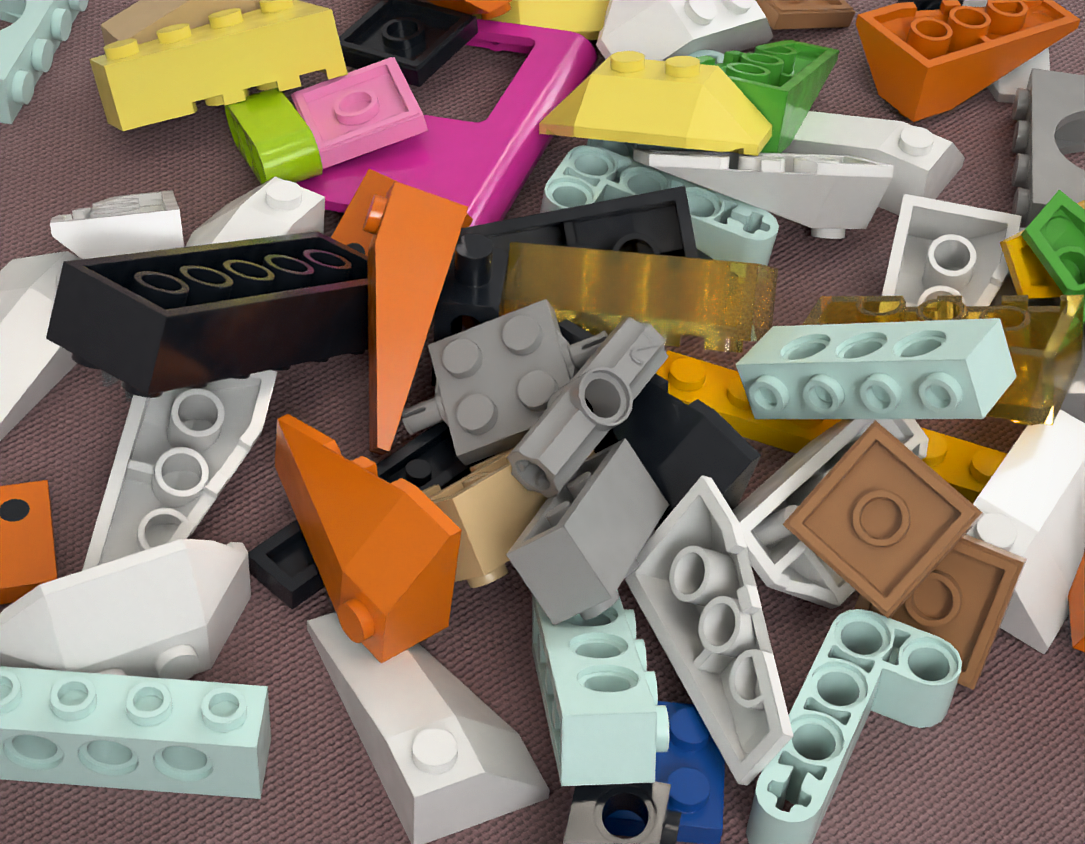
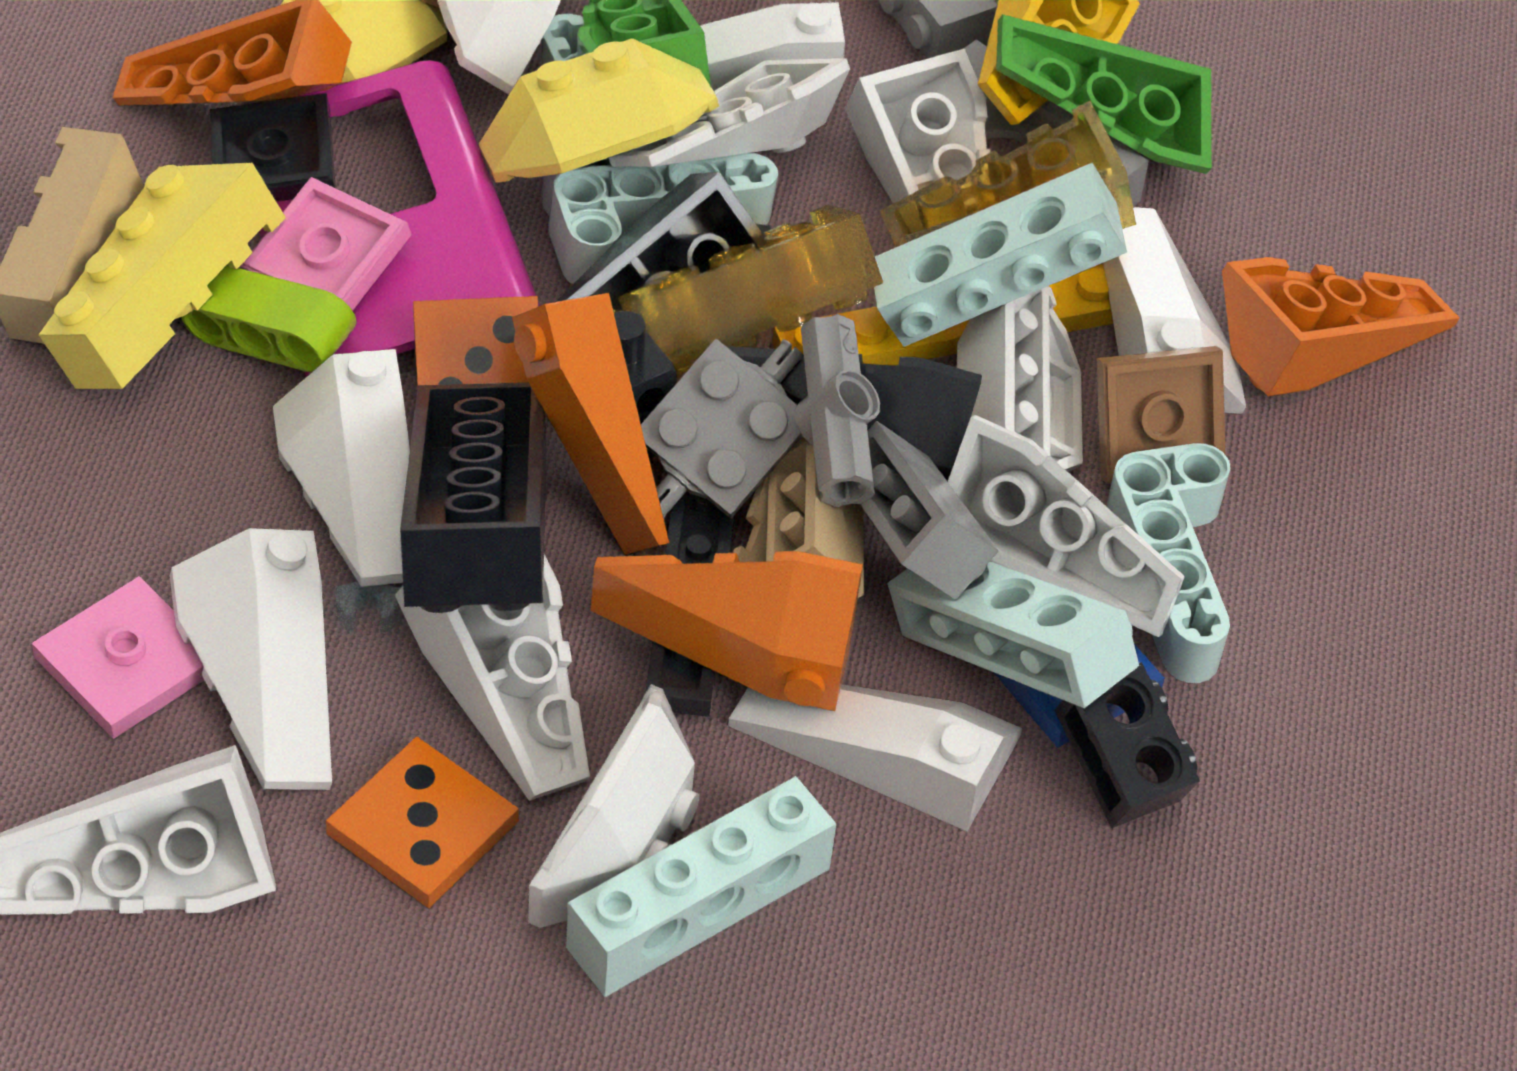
camera: 40 degrees left, 5 degrees up
(121, 226) = (282, 475): white wedge -> none
(882, 519) = (1105, 374): medium nougat tile -> none

